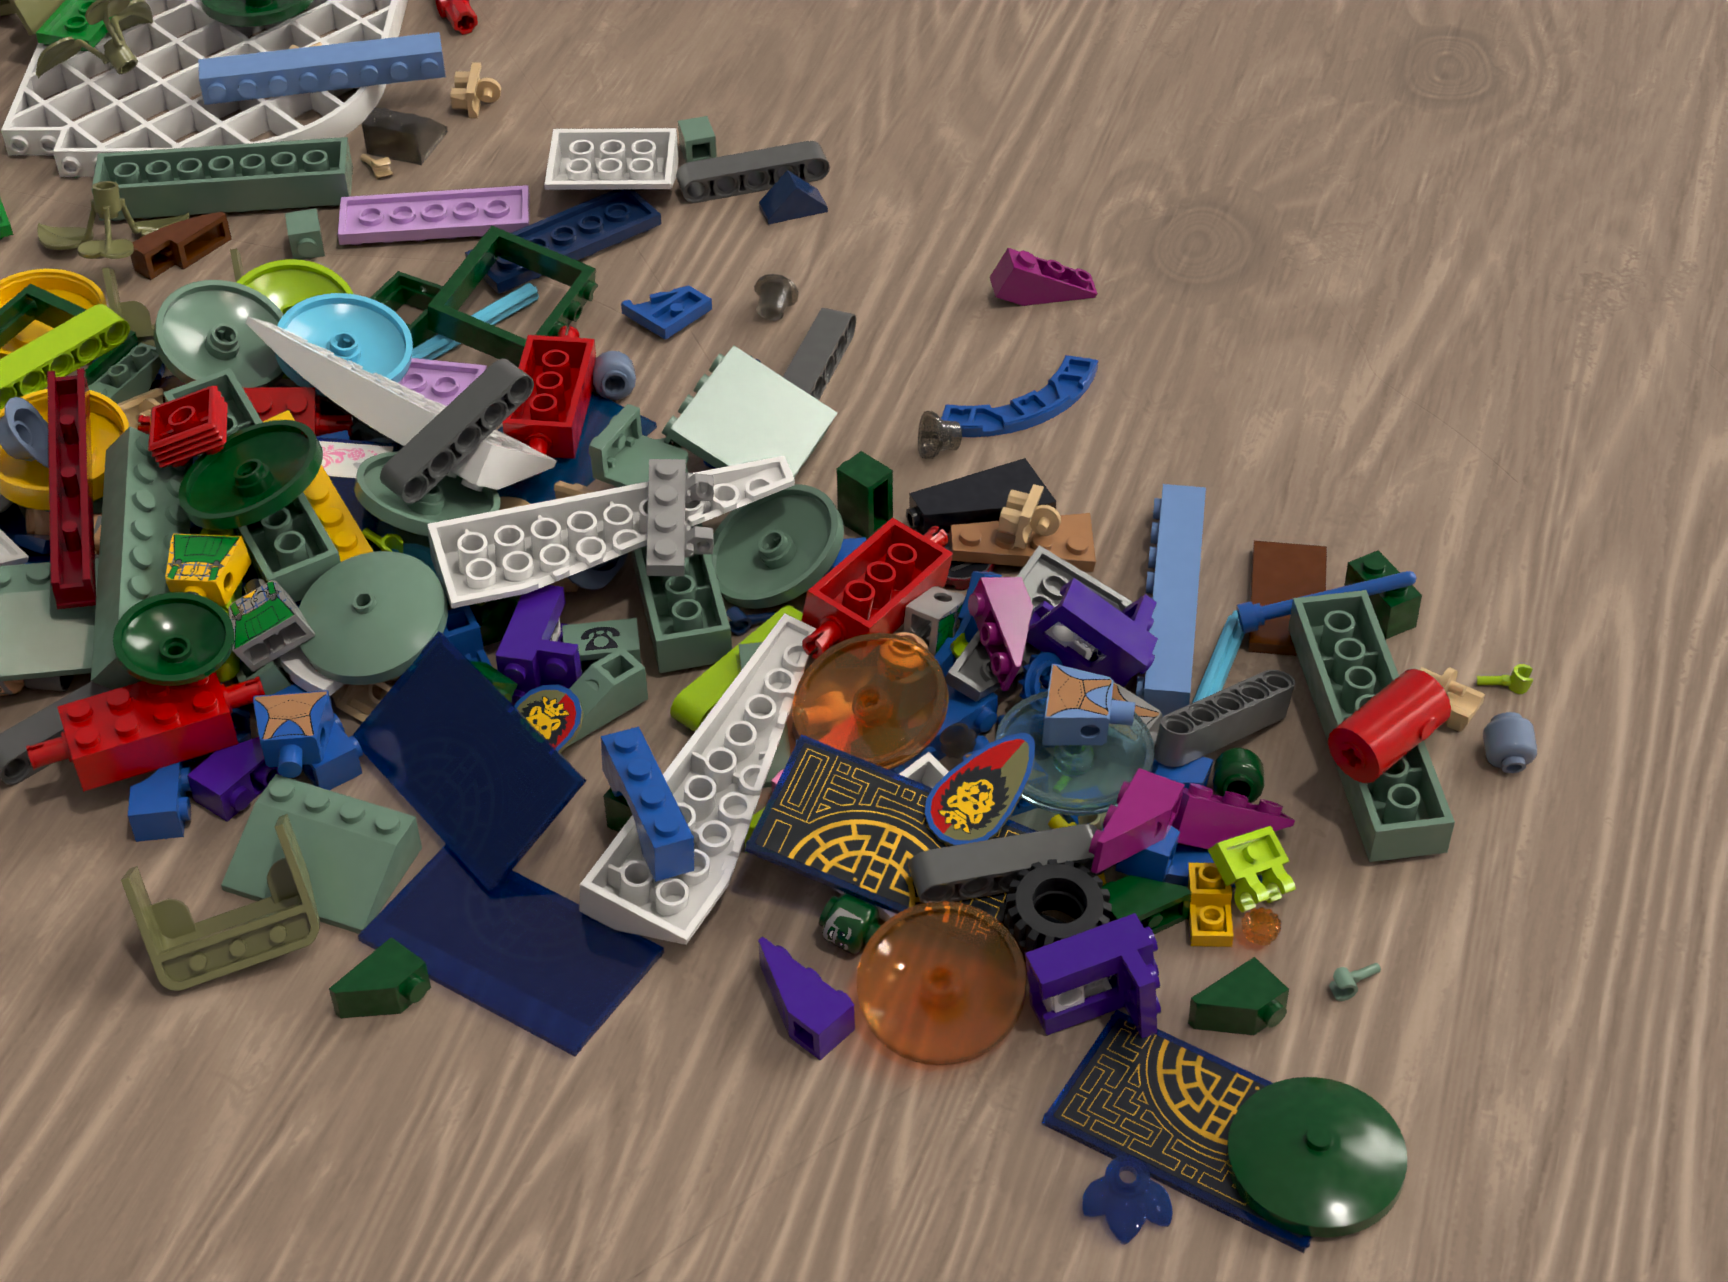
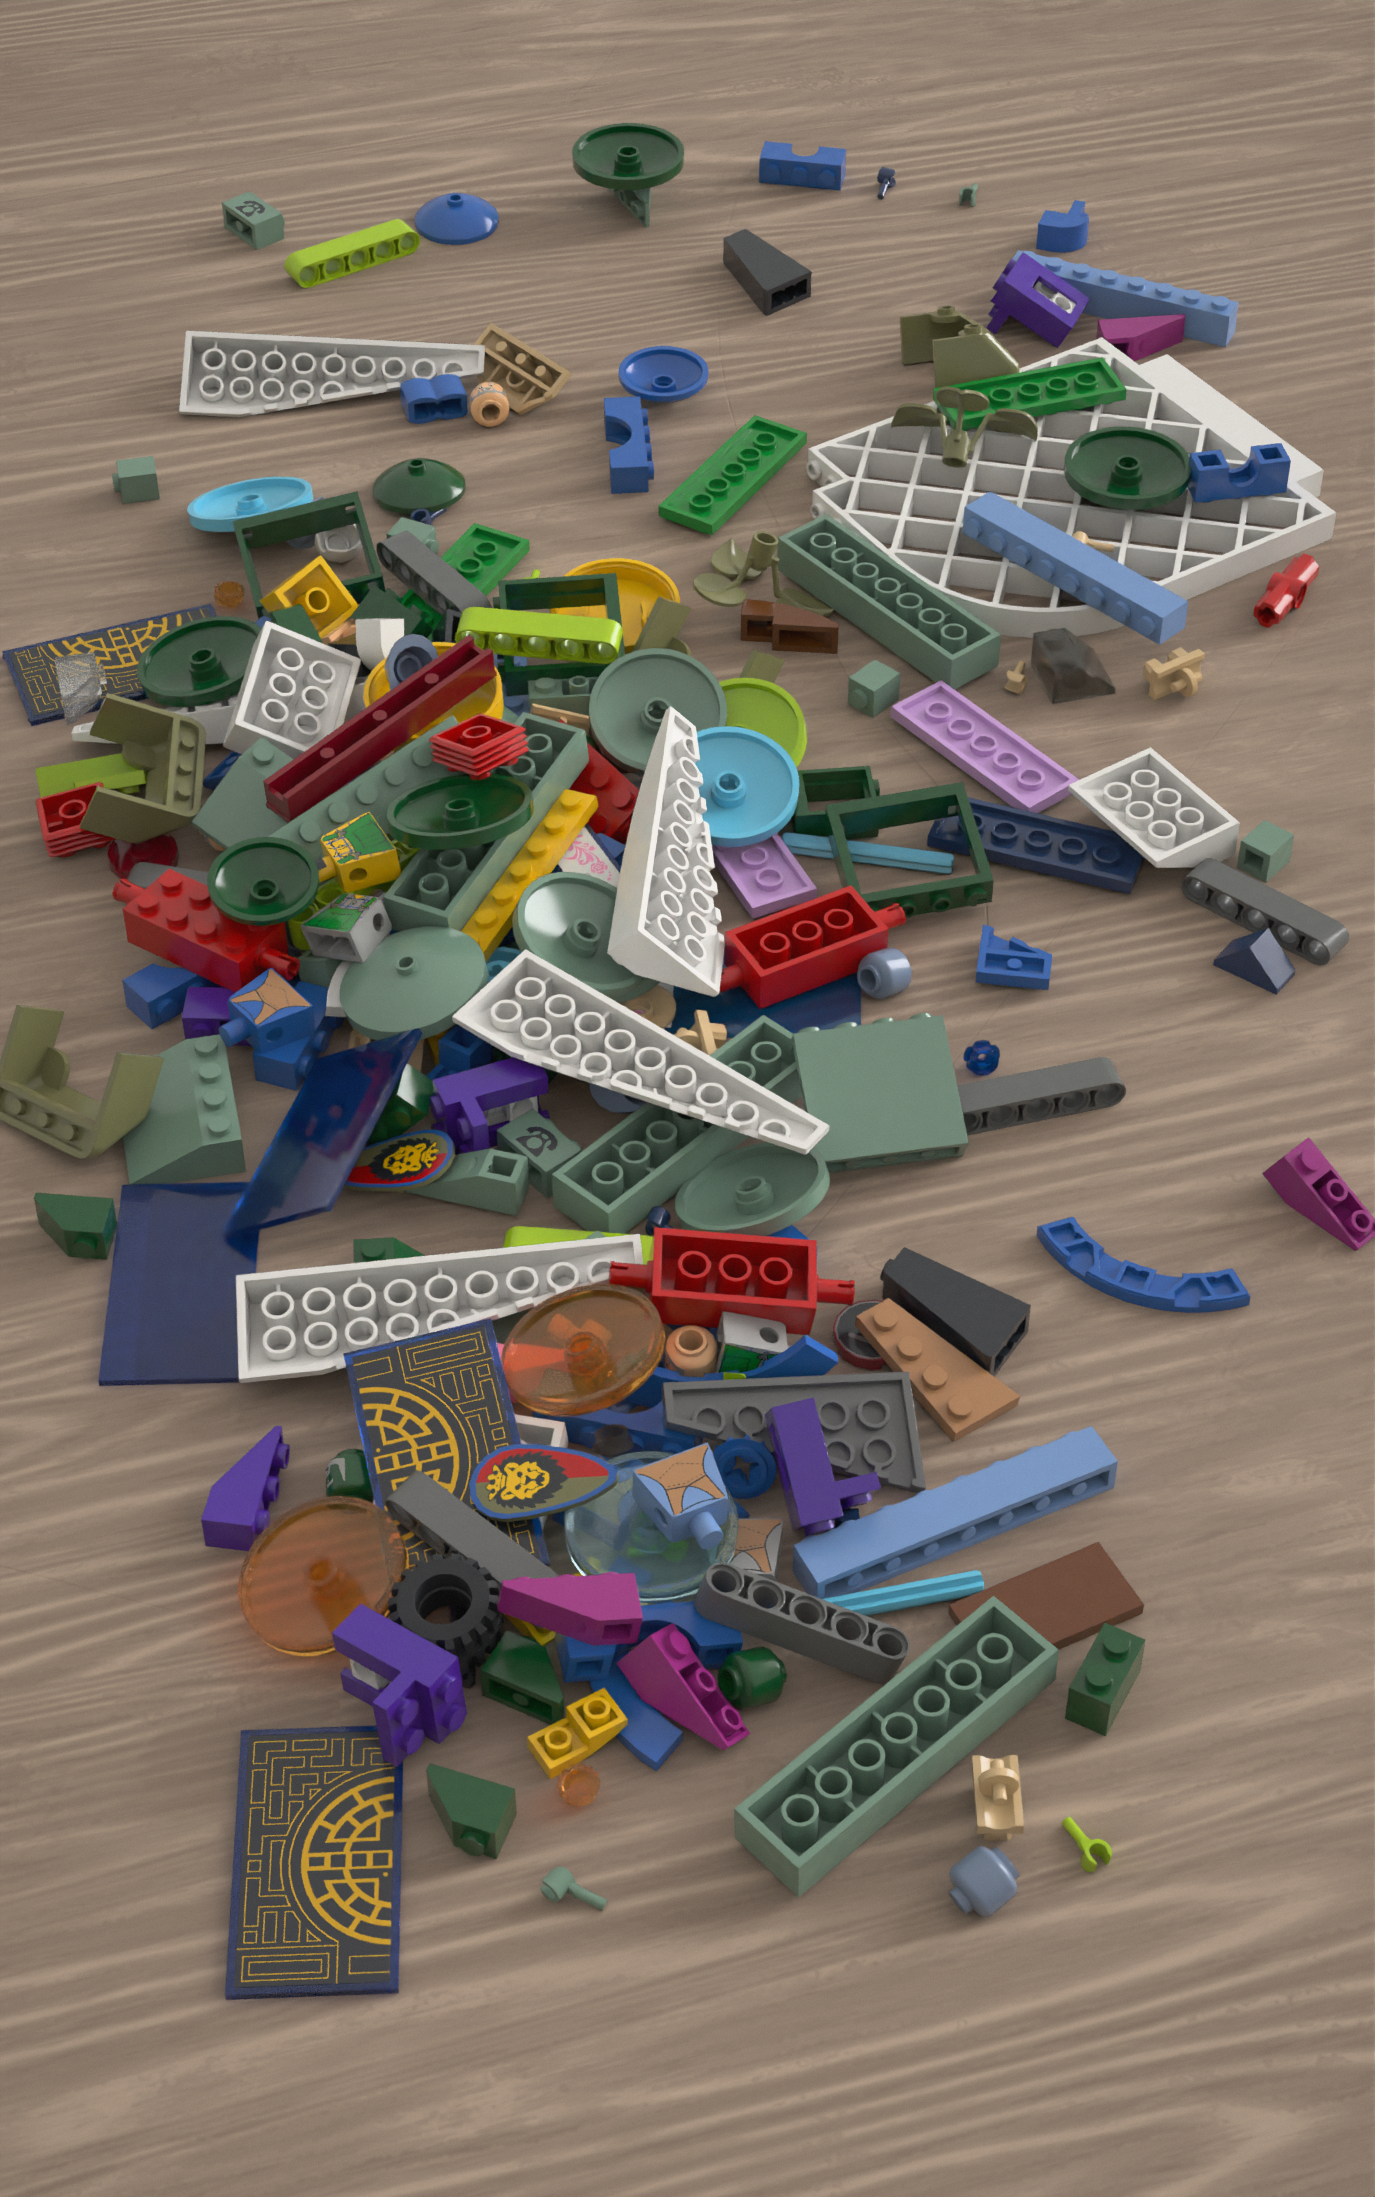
camera: 55 degrees right, 0 degrees up
(386, 543) = (508, 945): lime hand -> none
(456, 431) = (626, 897): dark grey beam -> none
(623, 454) = (750, 1030): sand green bracket -> none
(661, 827) = (312, 1287): blue arch -> none
(667, 535) = (651, 1102): light grey hinge -> none
(775, 295) = (1095, 1019): clear smoke piece -> none
(864, 494) = (871, 1218): dark green brick -> none
(937, 435) = (1018, 1231): clear smoke piece -> none
(1003, 620) = (768, 1380): slope -> none
(1024, 515) = (937, 1346): tan hips -> none
(1127, 1204) = (186, 1836): clear blue plate -> none
(1252, 855) = (635, 1726): lime plate -> none
(1255, 615) = (967, 1584): blue piece -> none
(1316, 1157) = (329, 1954): dark green dish -> none
(1389, 725) = (853, 1744): red piece -> none

